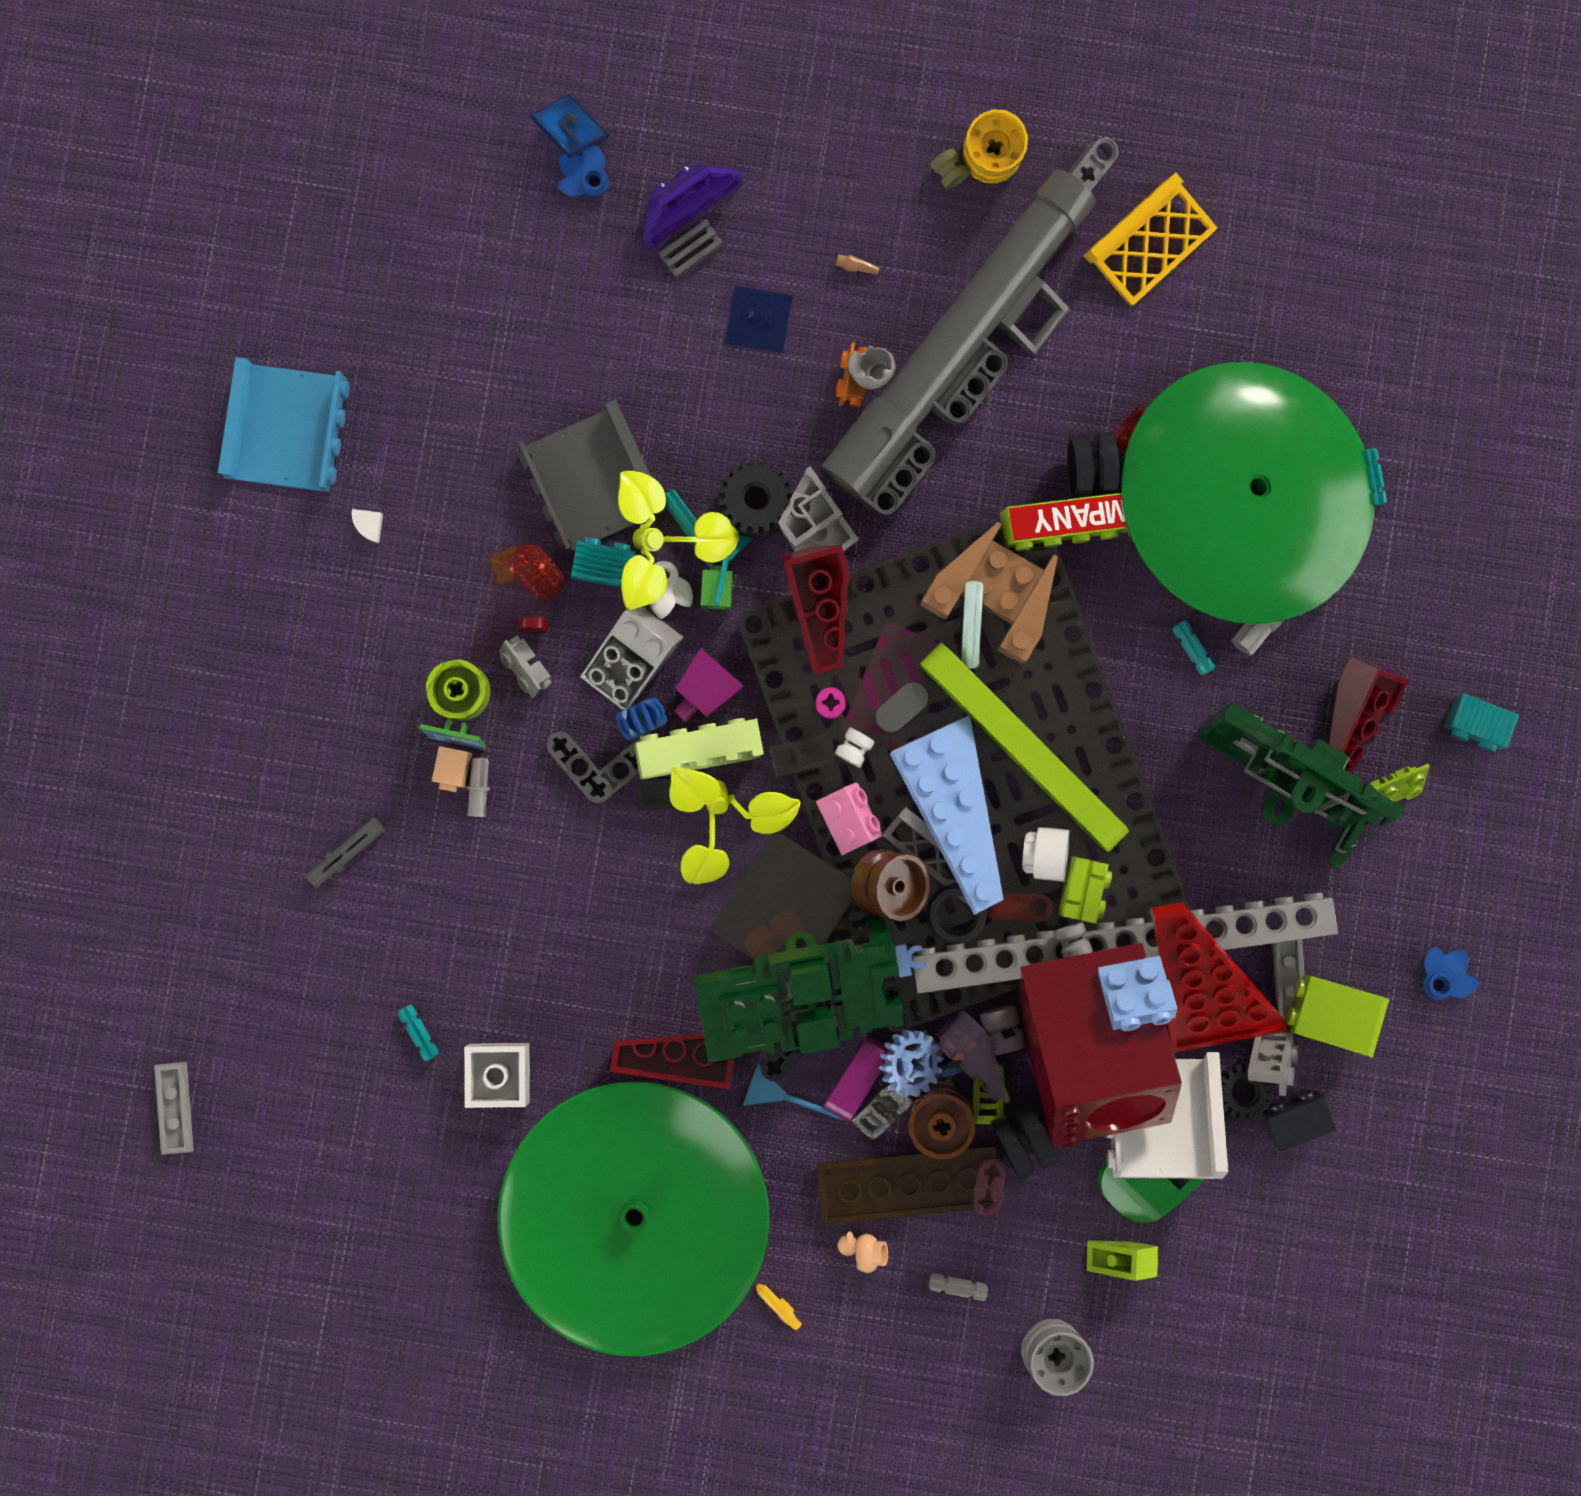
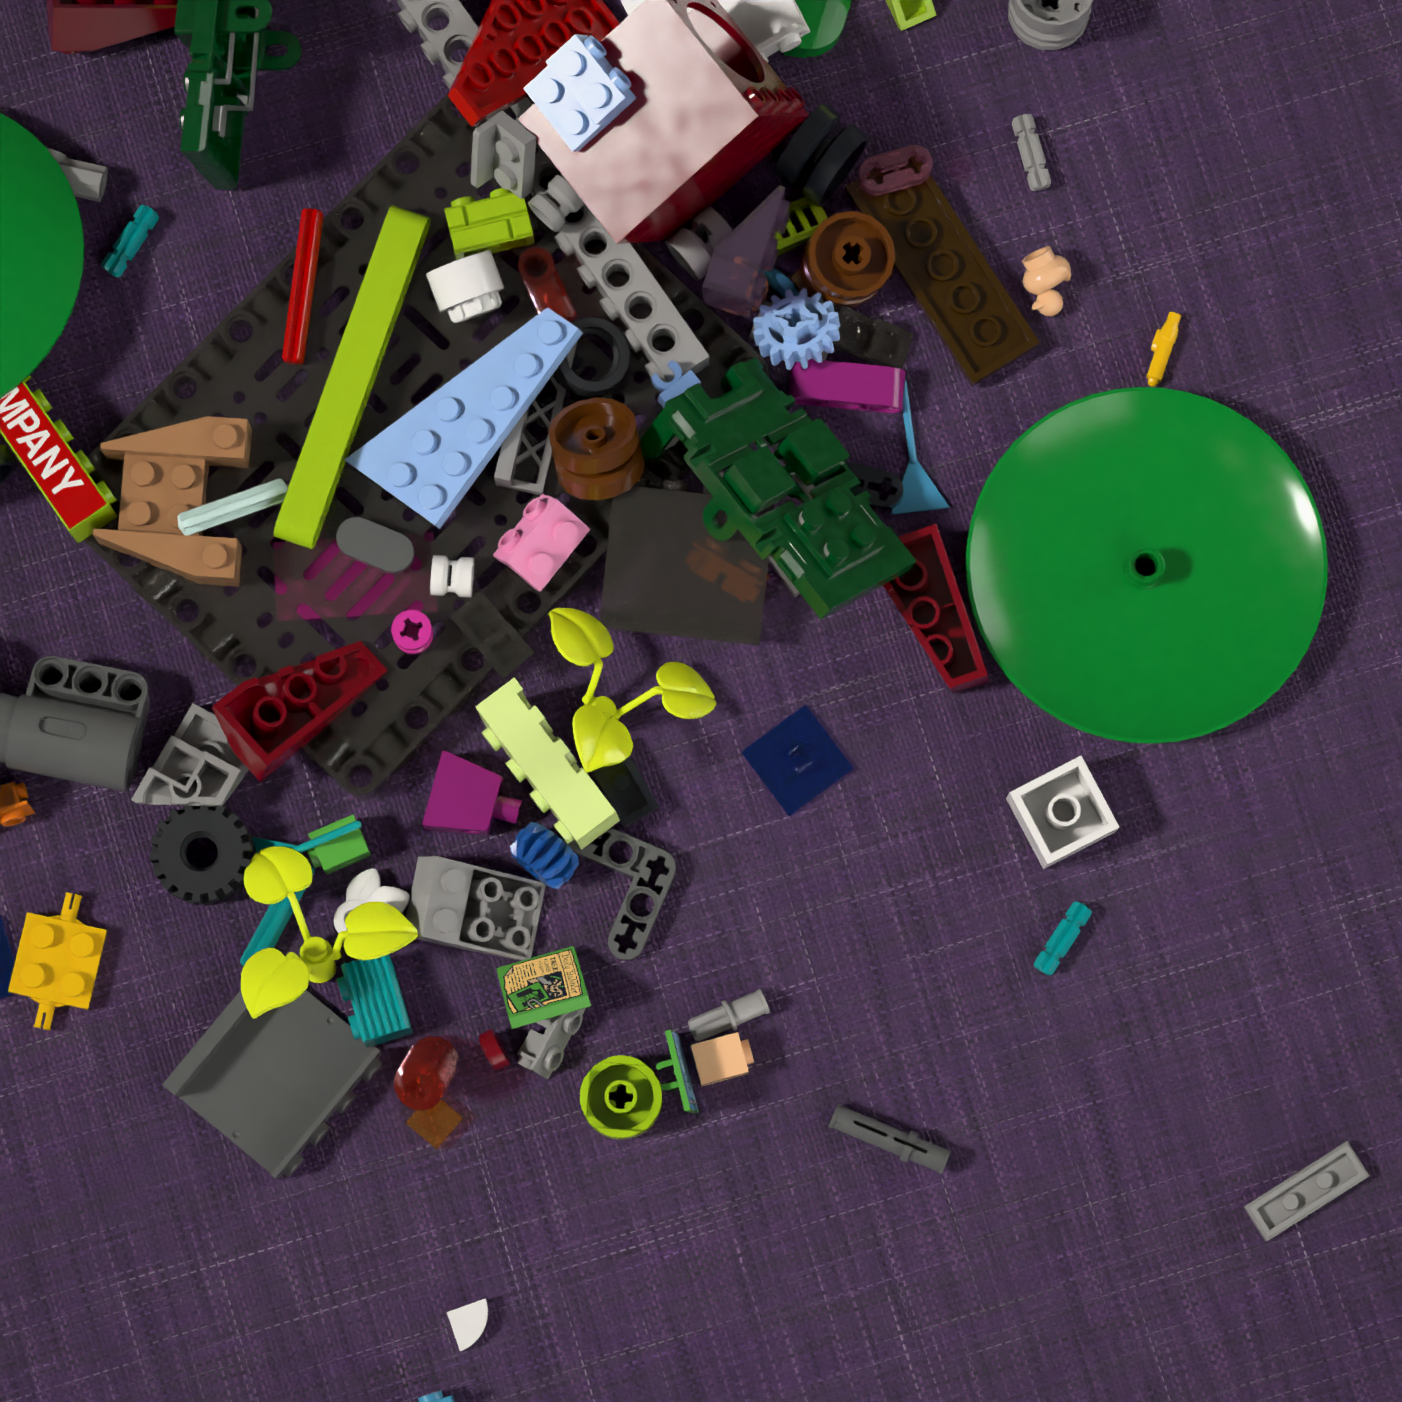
camera: 115 degrees left, 5 degrees down
(555, 675) = (543, 987): none -> tile
(624, 917) = (797, 760): none -> clear blue piece
(733, 373) = (57, 961): none -> yellow plate
(1103, 744) = (302, 286): none -> red axle
(1124, 924) = (503, 152): none -> light grey bracket

